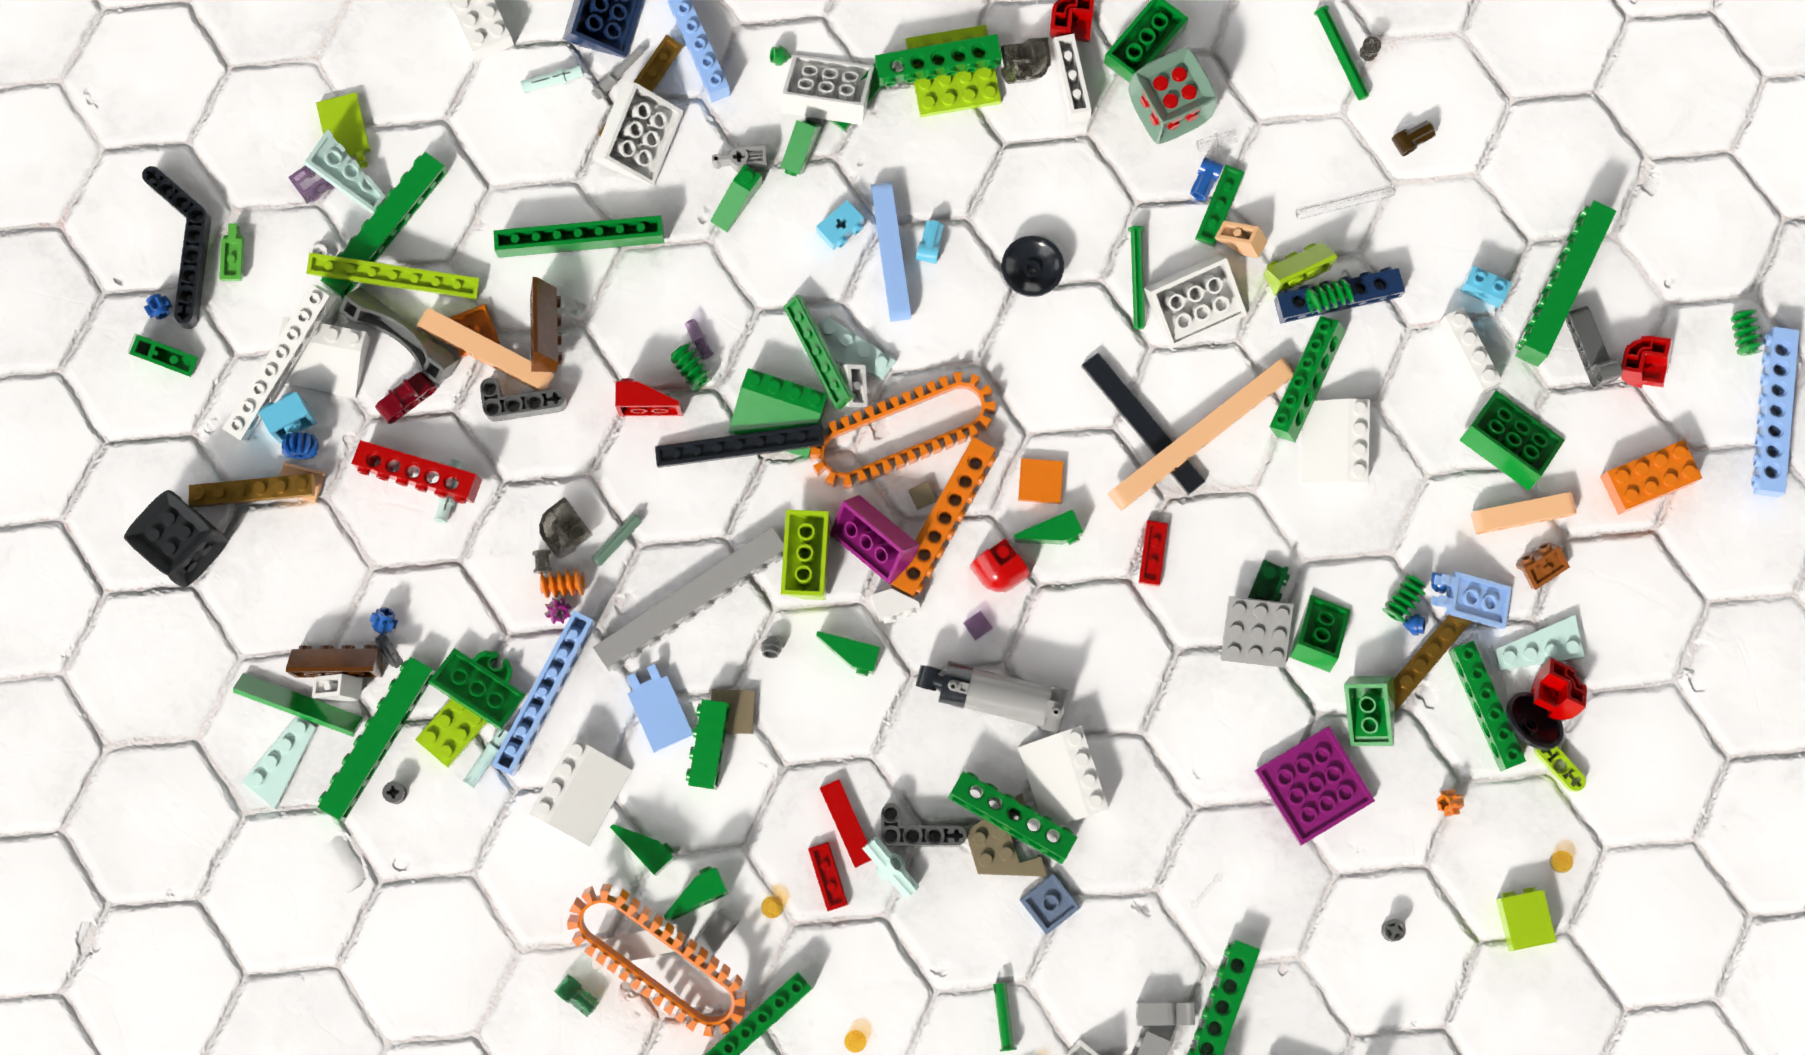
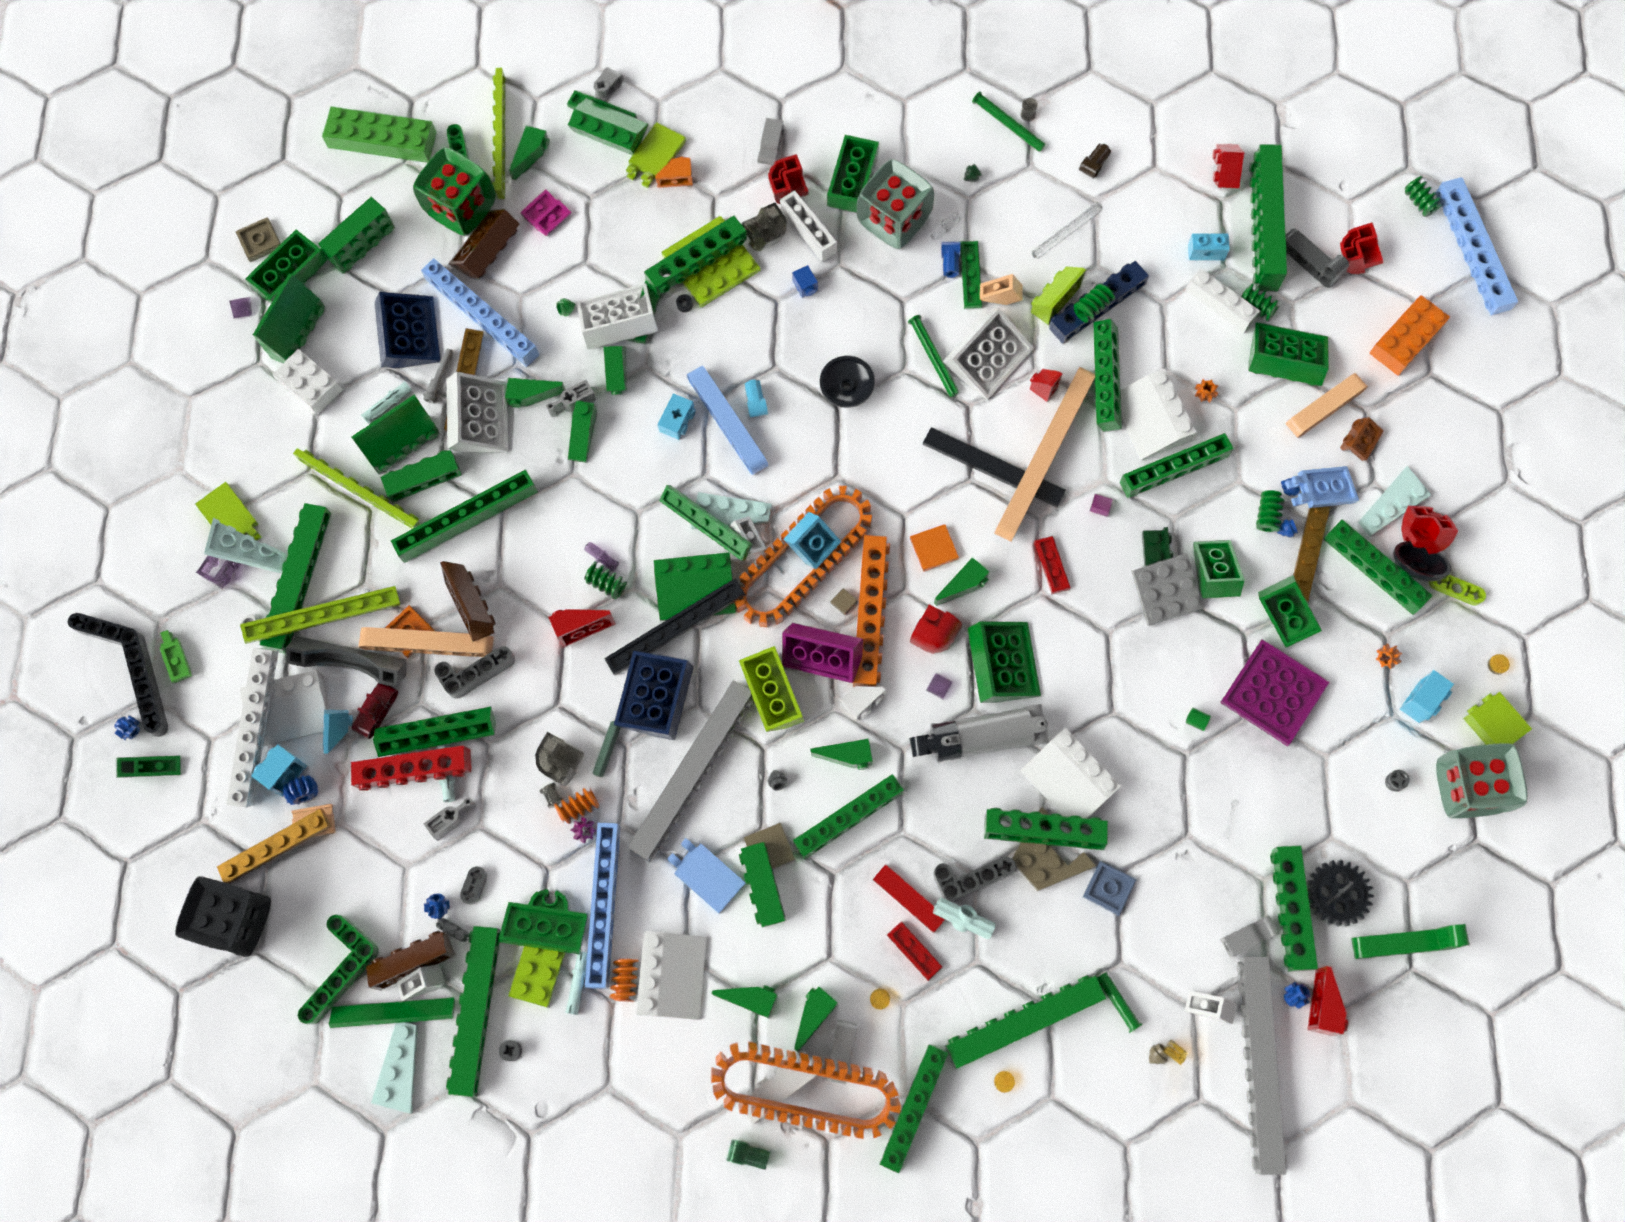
camera: 20 degrees left, 5 degrees down
(267, 642) = (343, 971): none -> green beam
(359, 398) = (335, 727): none -> medium azure slope
(421, 540) = (440, 824): none -> light grey piece
(424, 612) = (469, 883): none -> dark grey beam
(455, 446) = (434, 731): none -> green brick
(480, 153) = (352, 485): none -> lime plate
(532, 775) = (623, 979): none -> orange piece
(546, 121) = (396, 434): none -> green slope
(554, 173) = (421, 475): none -> green brick
(687, 506) = (654, 695): none -> dark blue slope
(701, 132) = (529, 392): none -> green slope
(824, 715) = (848, 816): none -> green brick
(903, 994) = (1025, 1022): none -> green brick
(904, 112) = (684, 297): none -> black bush
(917, 419) = (812, 540): none -> medium azure brick
(1040, 137) = (805, 281): none -> blue brick
(1054, 630) = (1003, 661): none -> green slope
(1222, 777) = (1198, 719): none -> green beam
(1234, 513) = (1101, 505): none -> magenta slope
(1238, 359) = (1045, 383): none -> red slope
(1275, 94) = (972, 173): none -> dark green plate
(1281, 1032) = (1351, 908): none -> black gear
(1331, 507) = (1176, 465): none -> green brick
(1409, 438) = (1203, 389): none -> orange gear
(1468, 859) = (1427, 696): none -> medium azure brick
(1473, 969) = (1481, 781): none -> sand green piece
(1509, 371) = (1260, 302): none -> green piece
(1554, 203) = (1229, 165): none -> red brick

